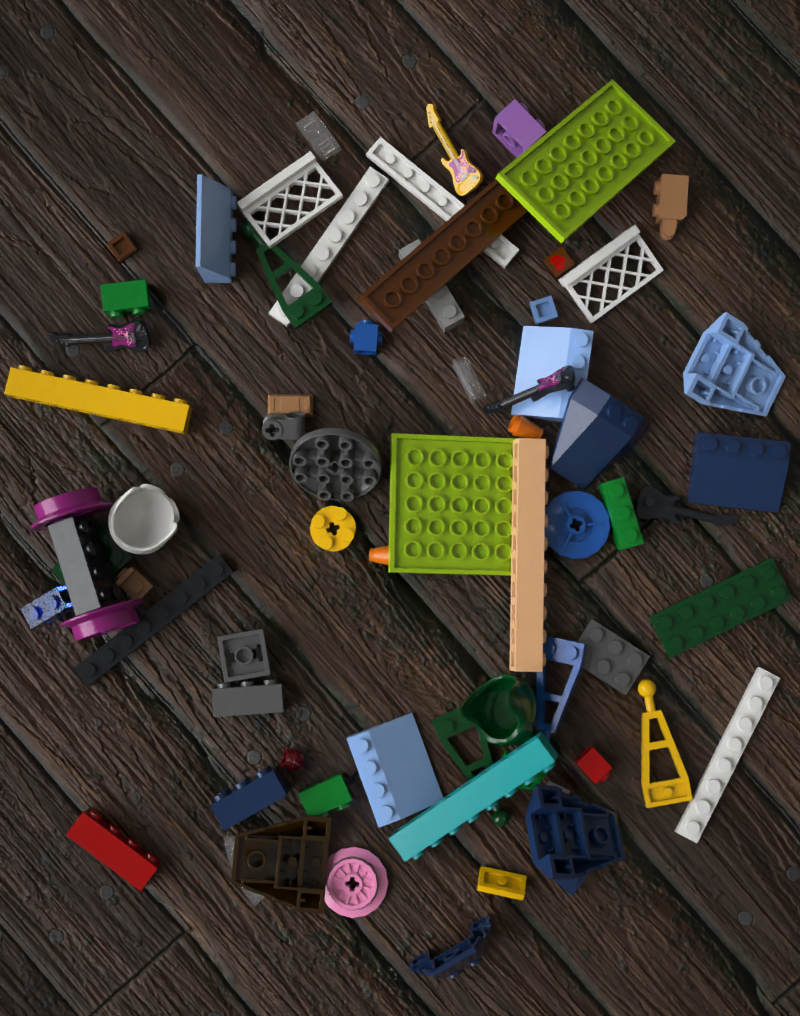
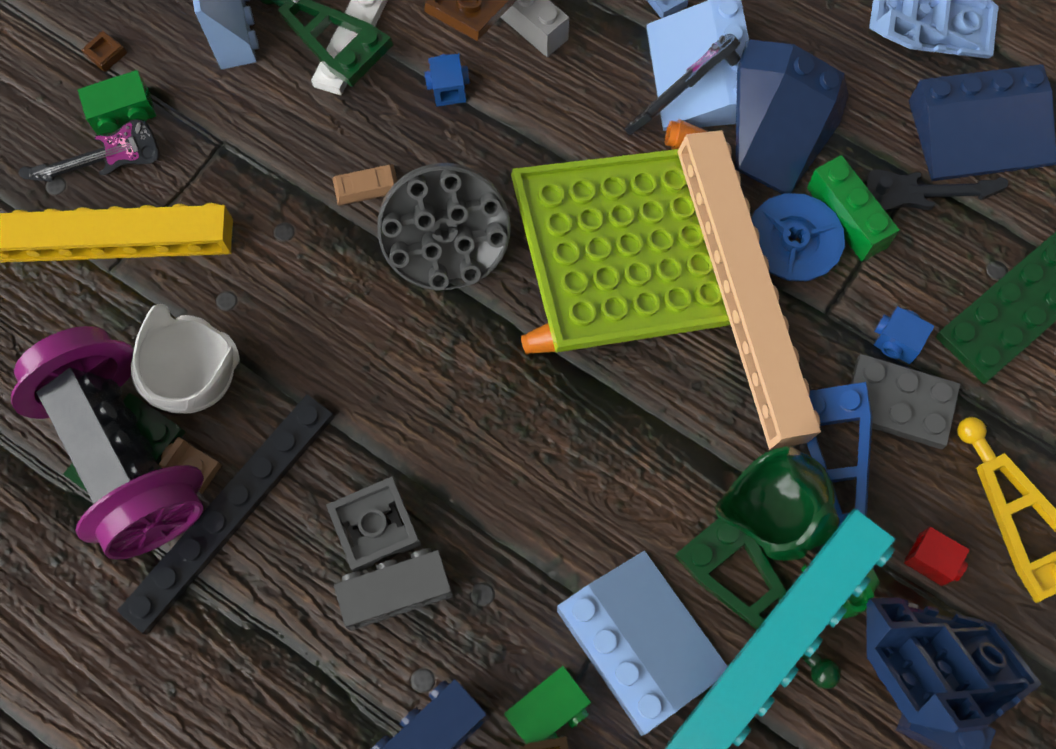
camera: 10 degrees left, 15 degrees down
(47, 607) = (53, 531): clear blue brick -> none
(287, 426) = (367, 203): dark grey piece -> none
(292, 759) = (482, 665): dark red plate -> none
(321, 522) = (459, 341): yellow plate -> none
(468, 379) = (593, 99): clear slope -> none
(623, 613) = (902, 334): none -> blue brick

